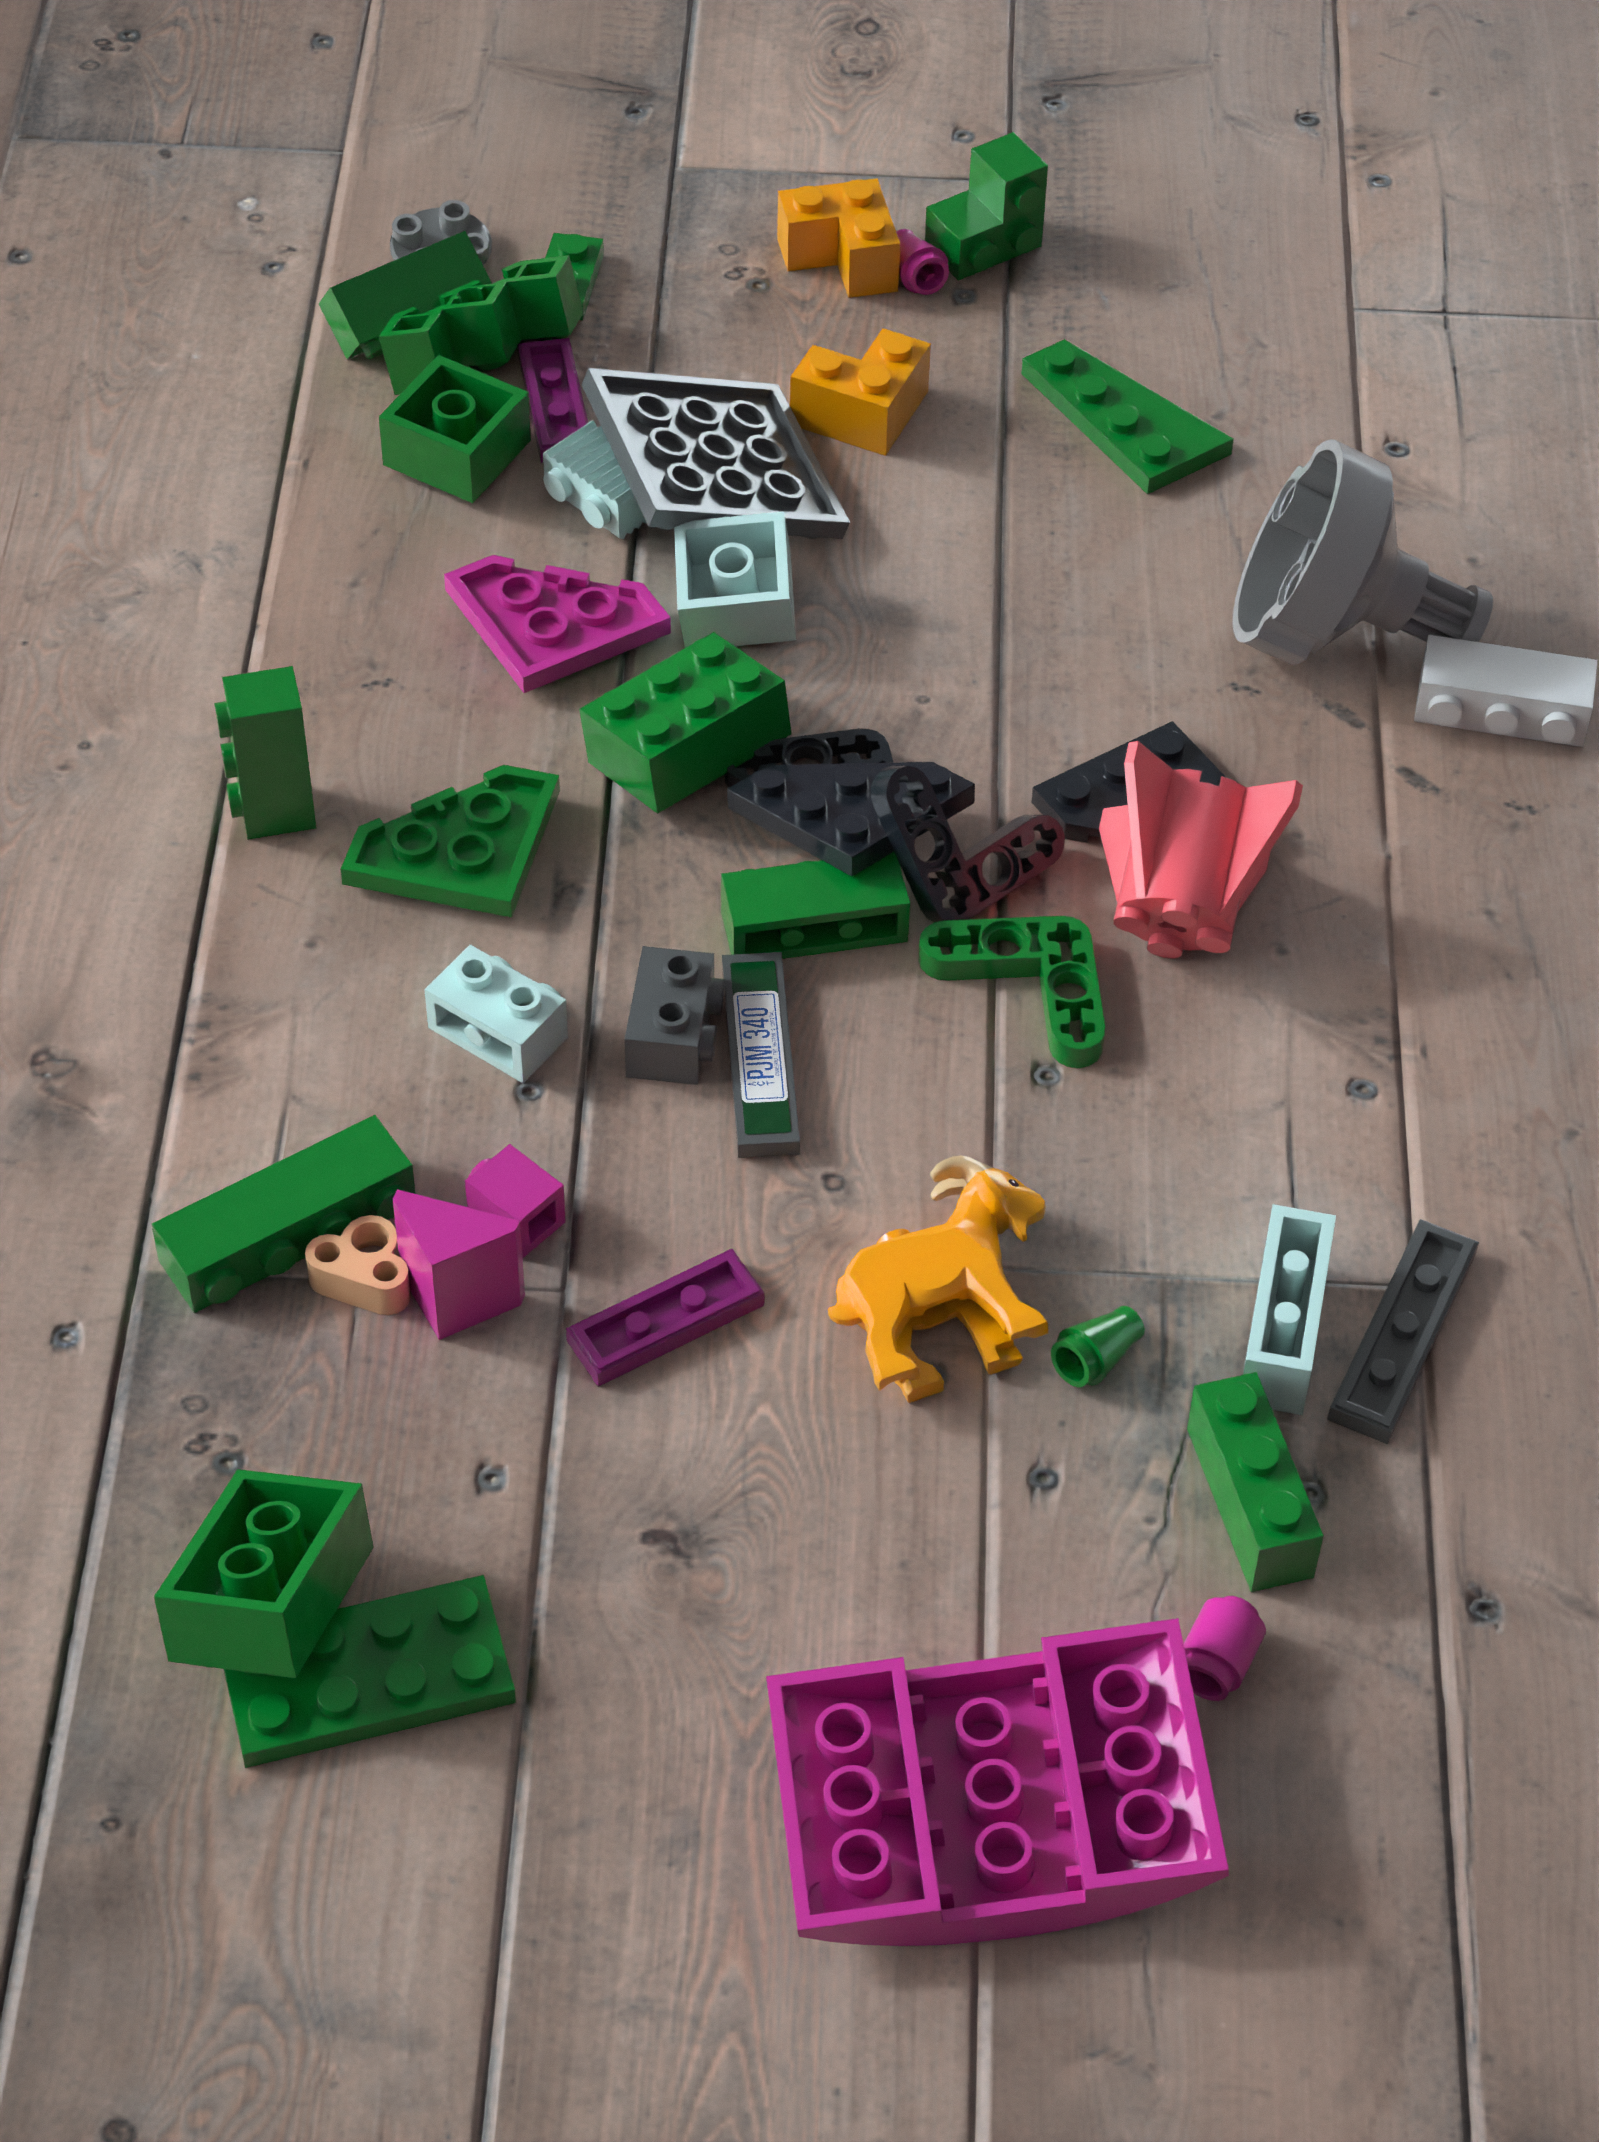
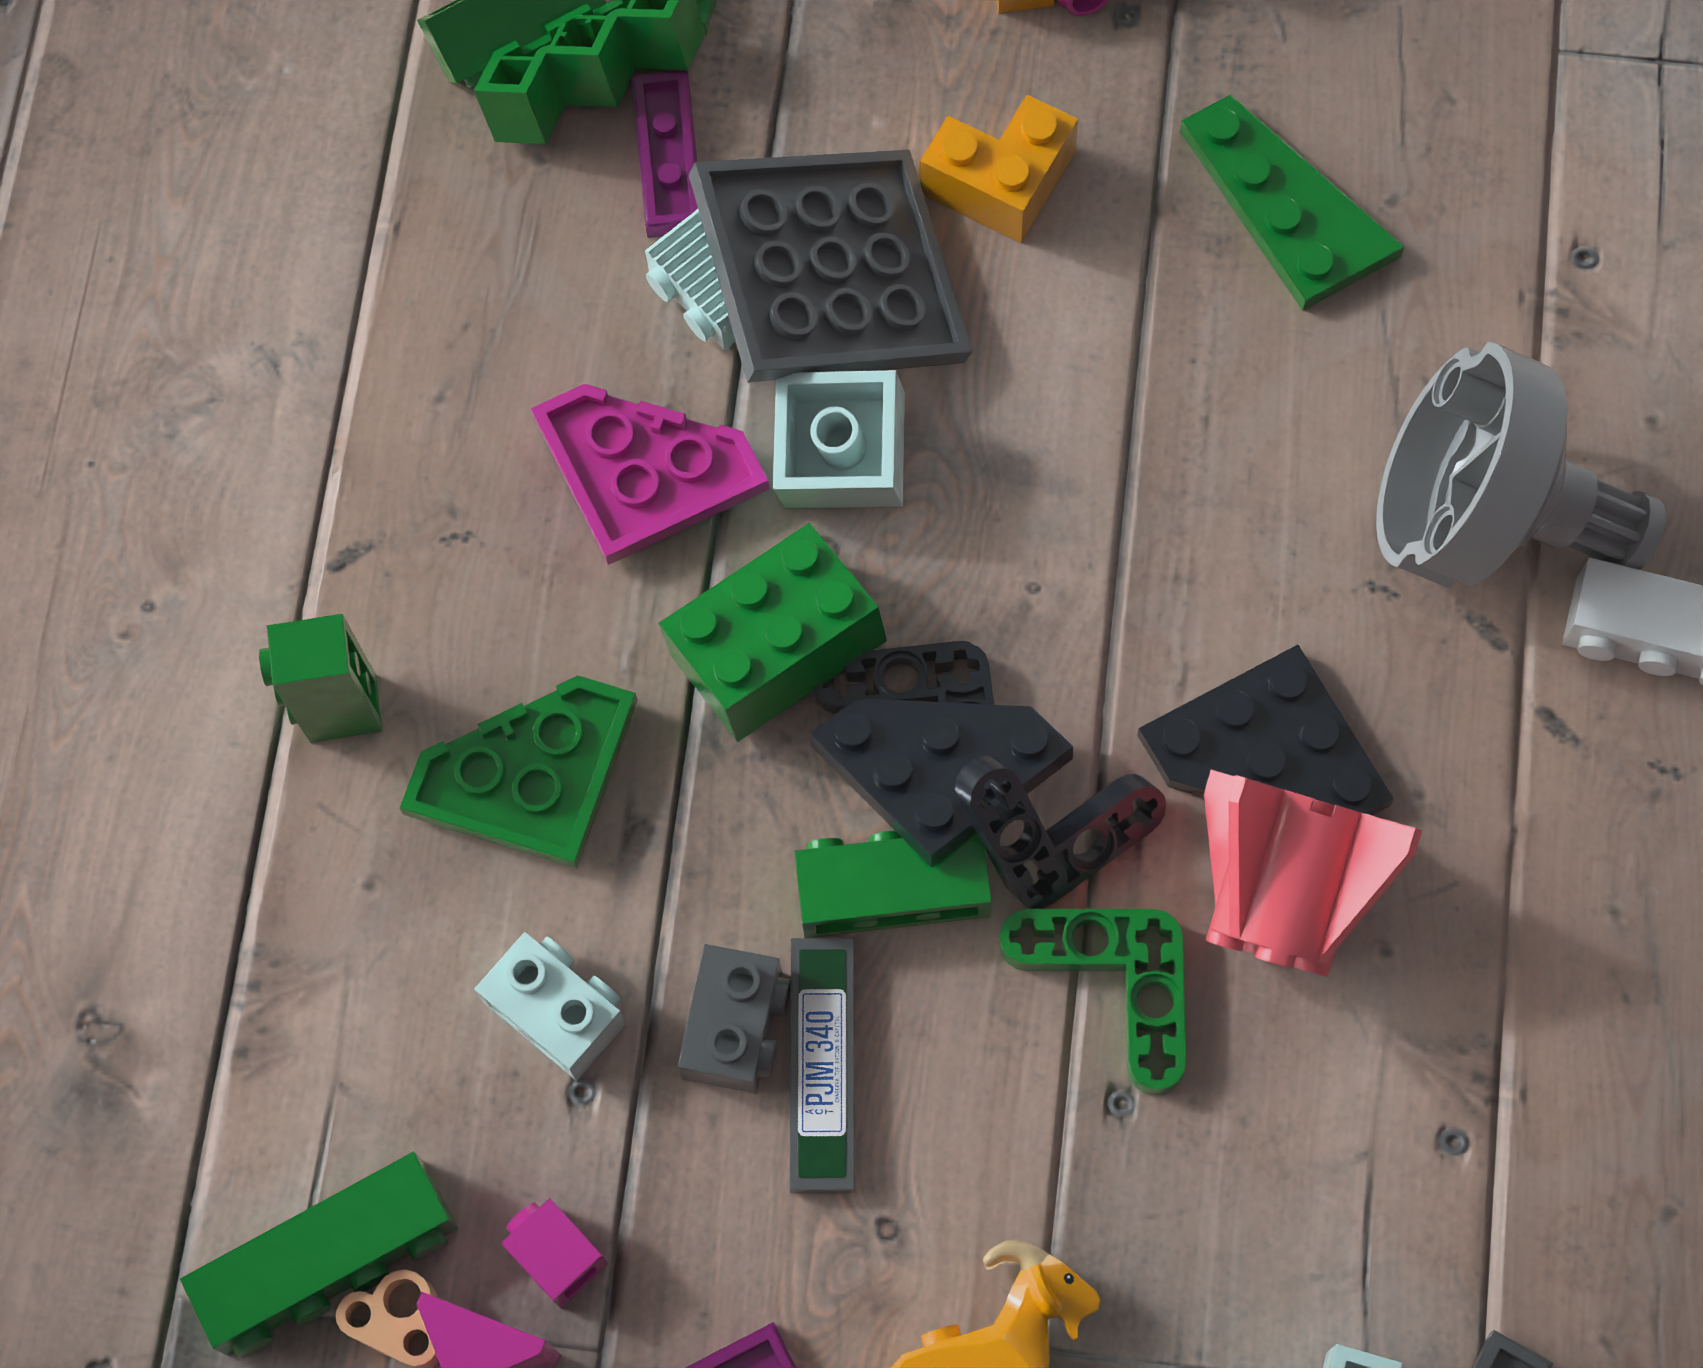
camera: 10 degrees right, 20 degrees up
(455, 428) = (553, 208): green brick -> none

